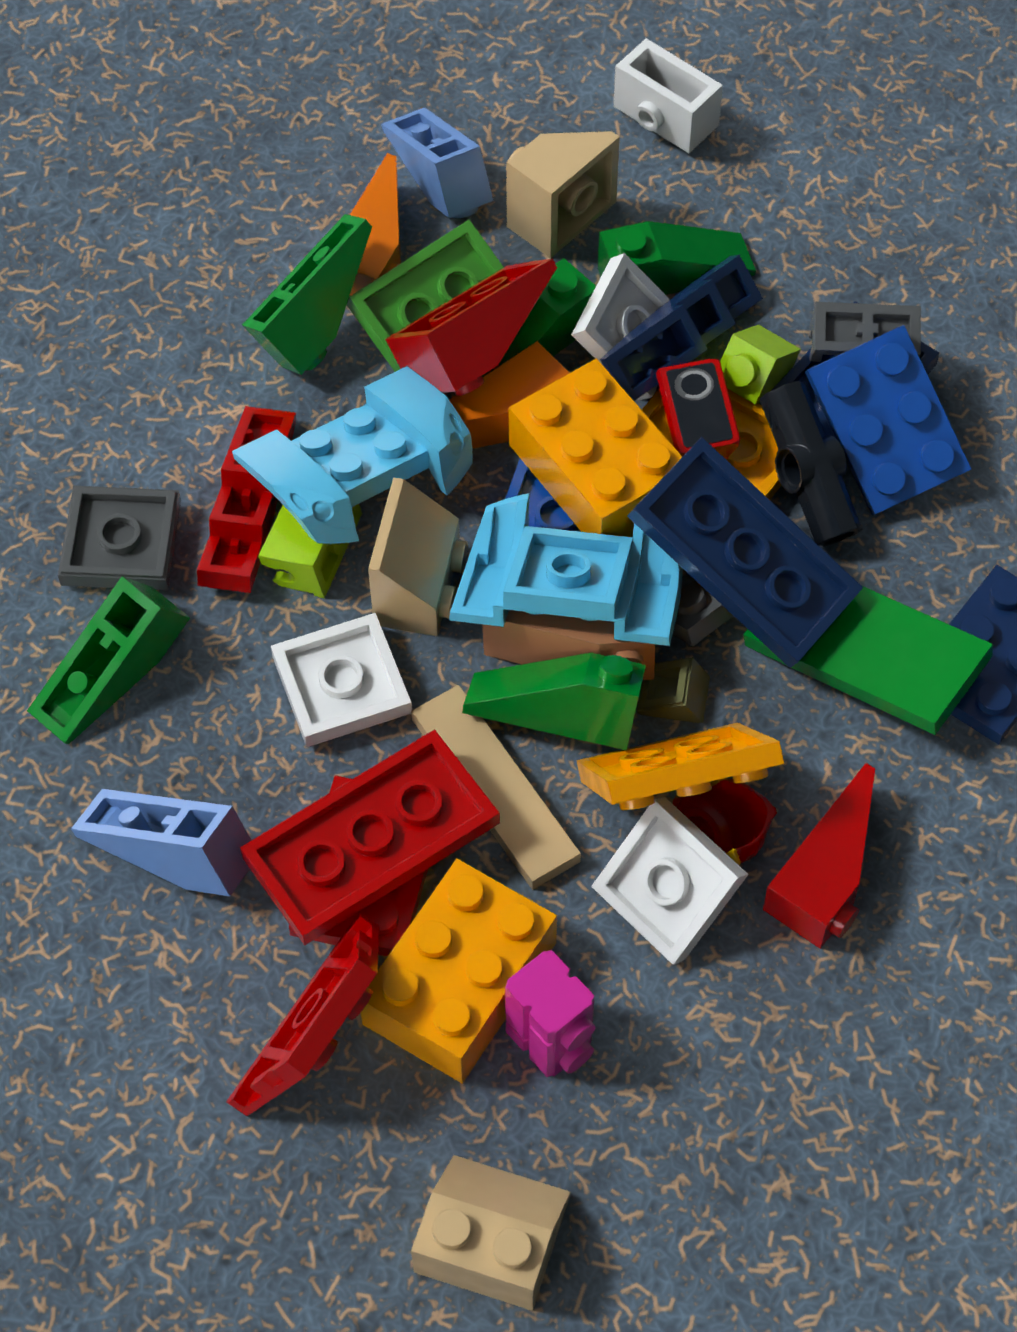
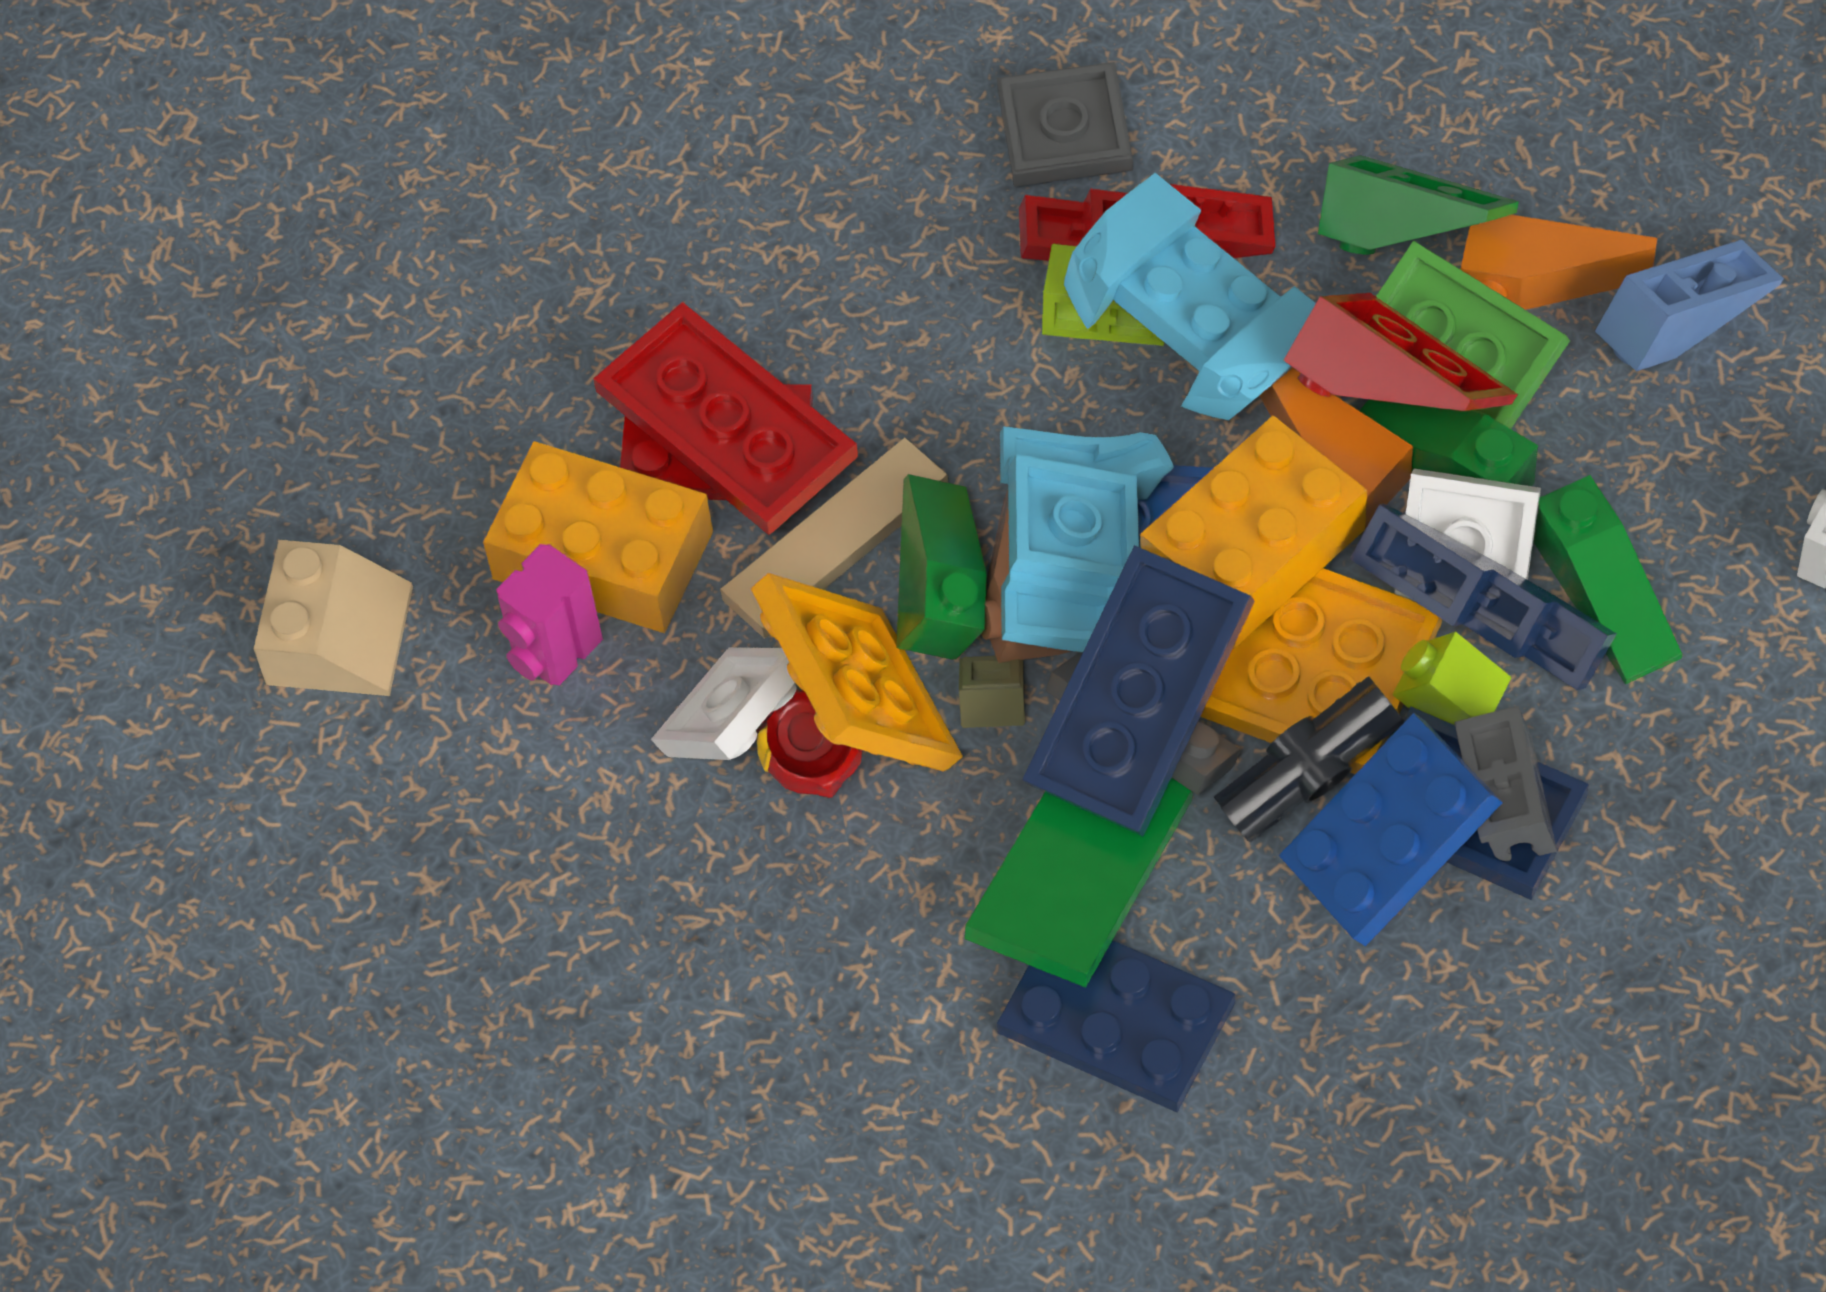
camera: 85 degrees right, 0 degrees up
(108, 658) = (912, 150): green slope -> none
(169, 837) = (703, 248): medium blue slope -> none
(307, 1032) = (524, 416): red wing -> none
(341, 679) = (930, 365): white plate -> none
(415, 561) = (1078, 377): tan slope -> none
(560, 186) = (1653, 426): tan slope -> none
(698, 406) = (1349, 623): slope -> none
(822, 877) = (791, 865): red slope -> none

